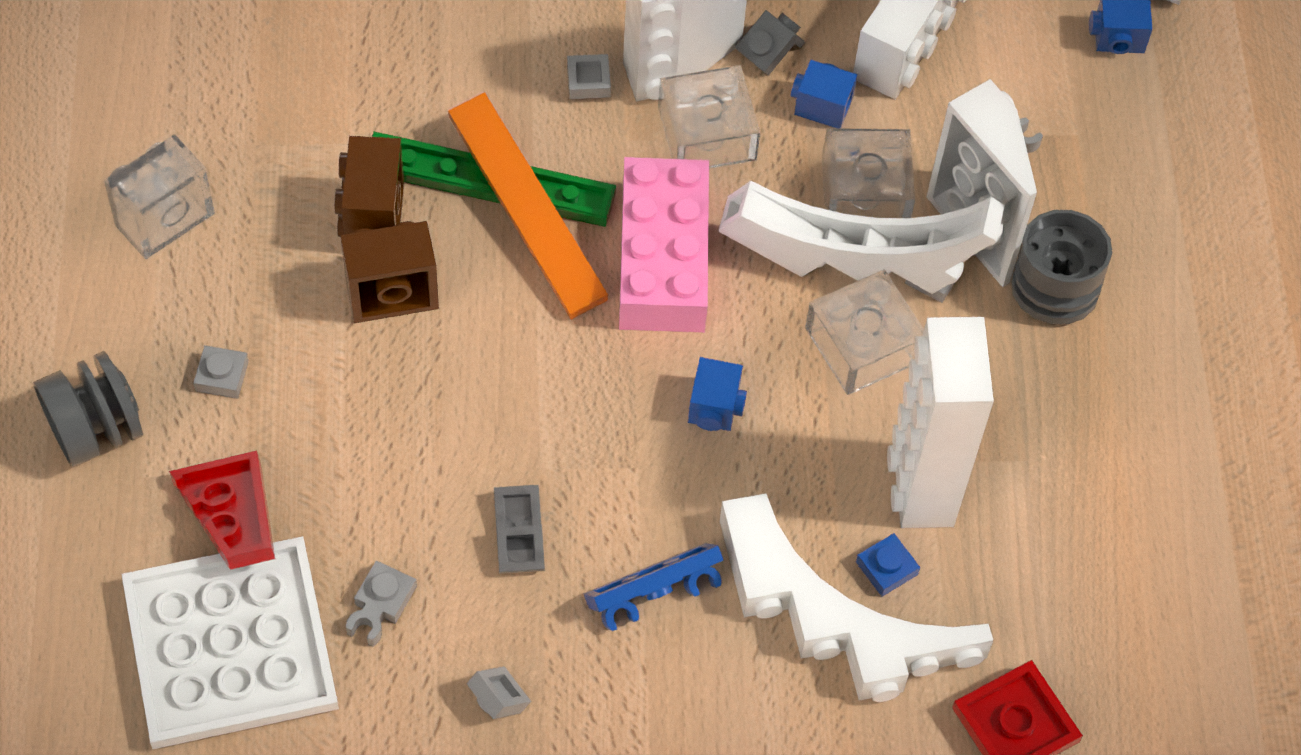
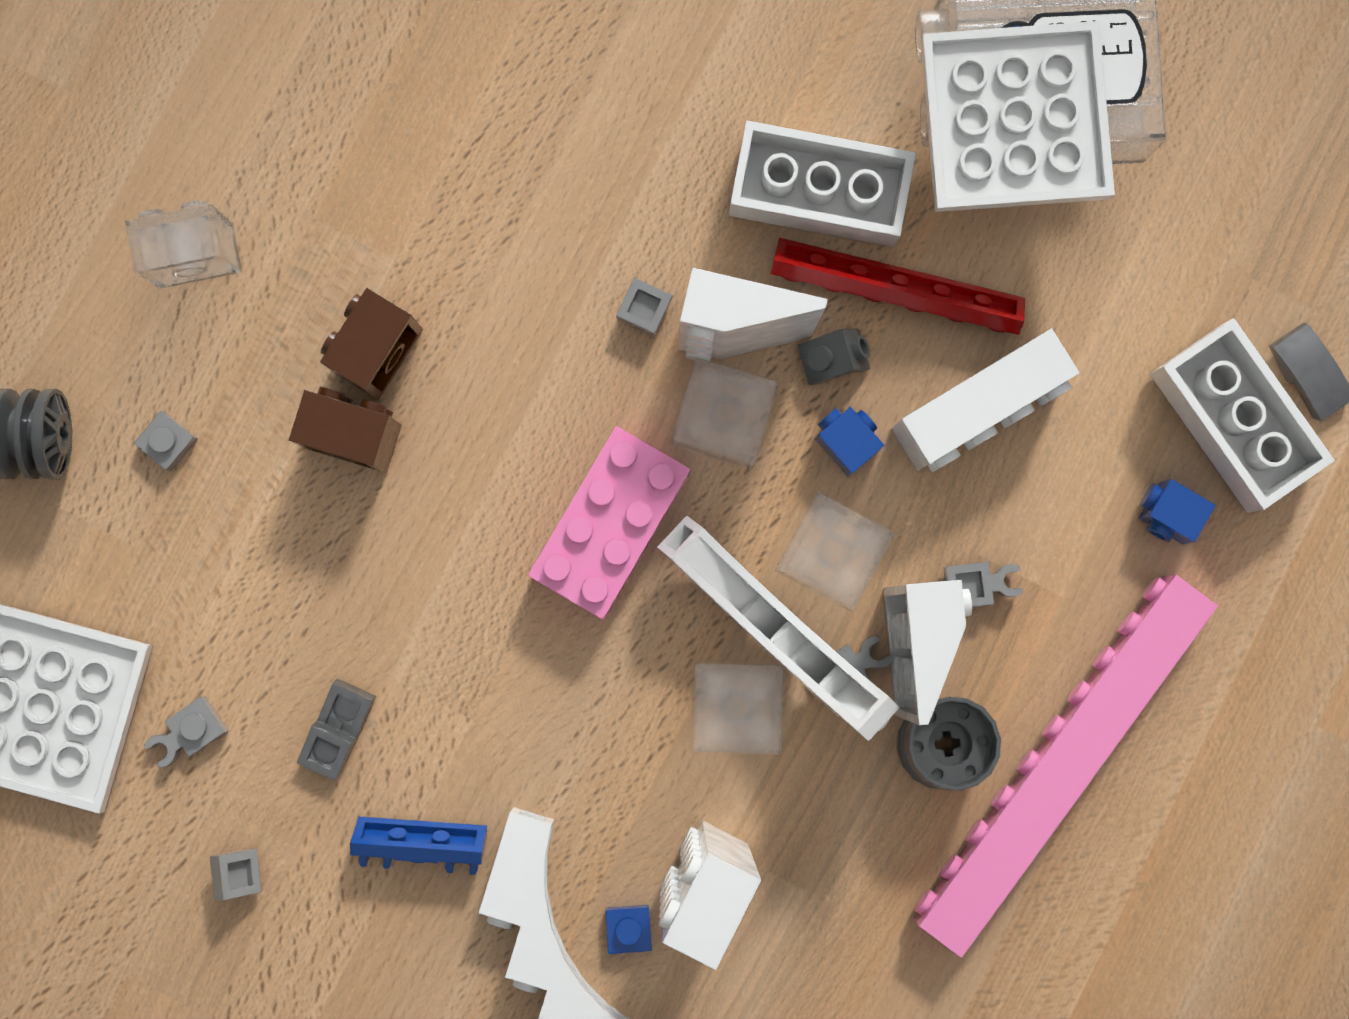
camera: 30 degrees right, 25 degrees up
(230, 506) = (101, 587): red wing -> none
(459, 174) = (498, 365): green tile -> none
(528, 206) = (511, 417): orange tile -> none
(716, 395) = (570, 698): blue brick -> none
(1165, 253) = (1063, 763): none -> bright pink brick

